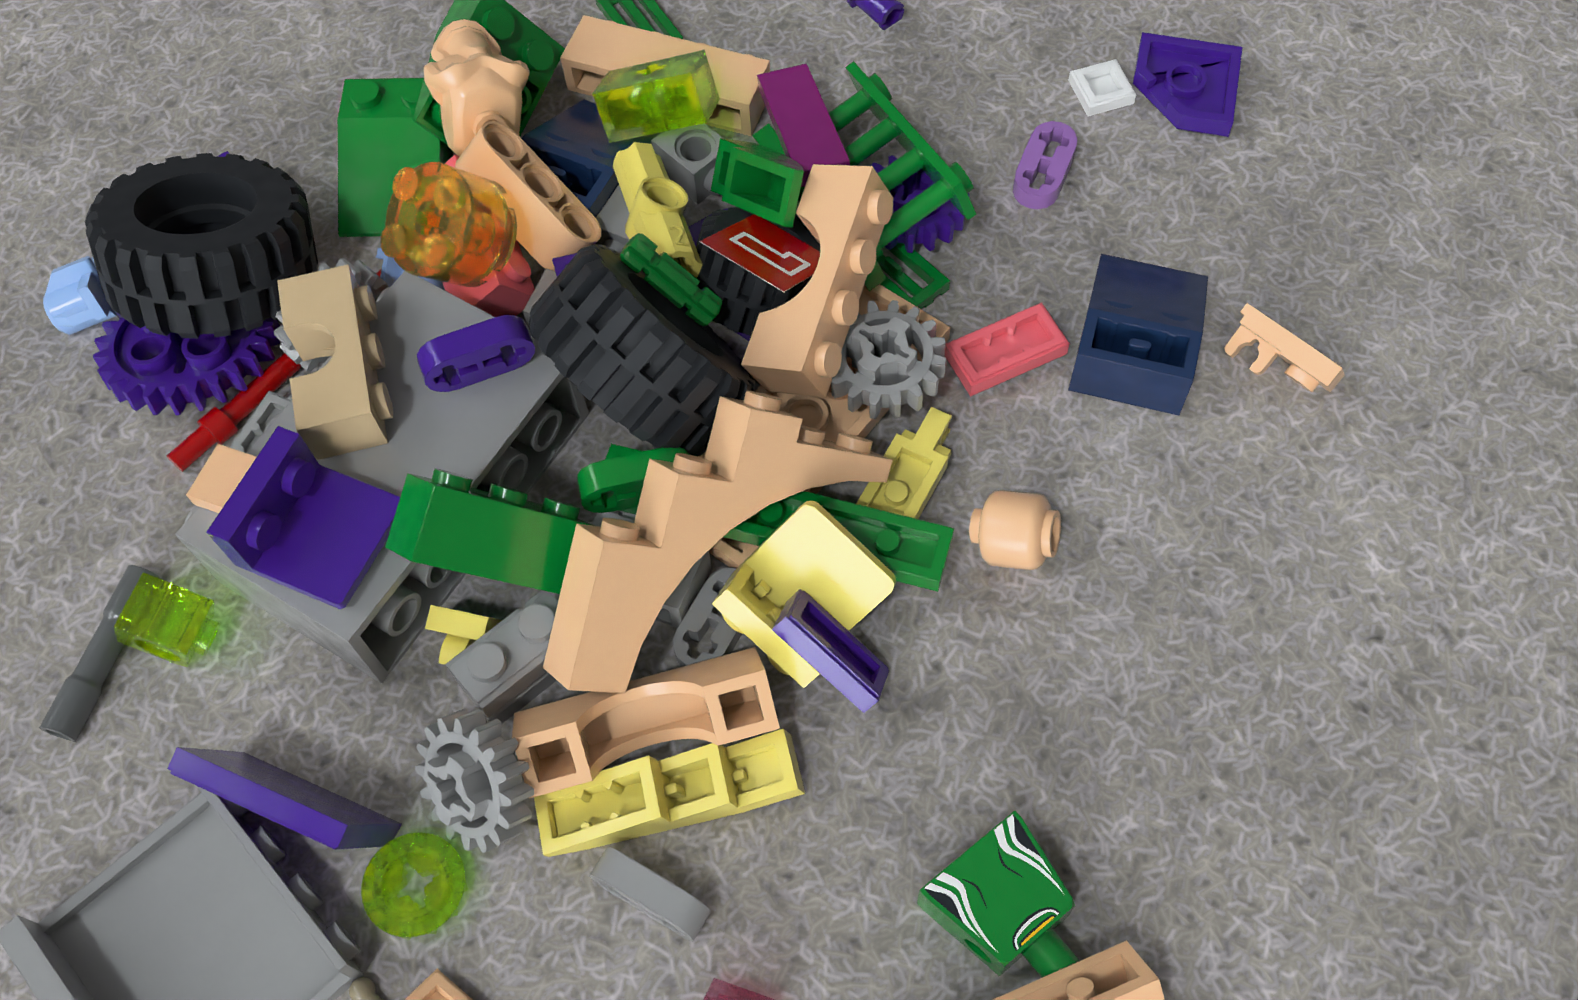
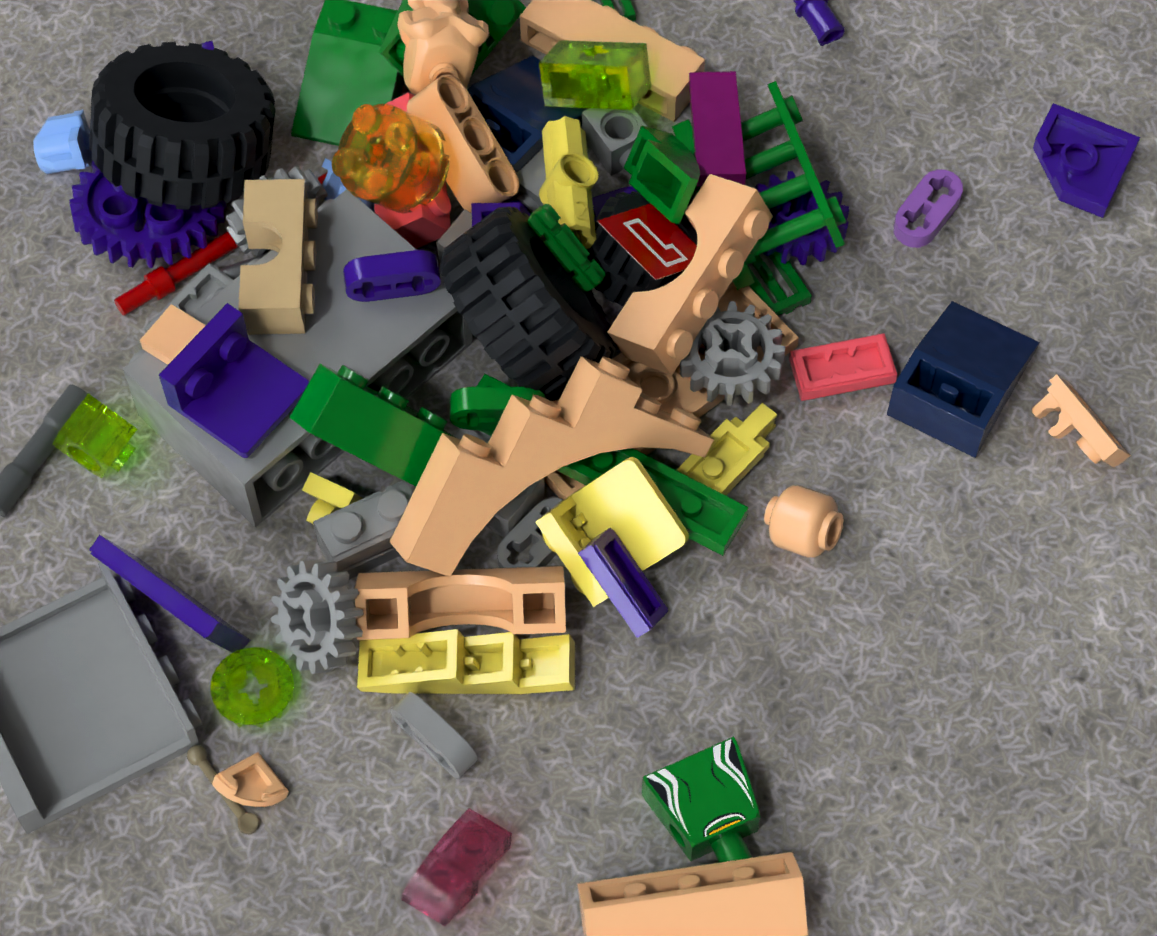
camera: 10 degrees right, 0 degrees up
(1102, 87) = (1003, 146): white tile -> none

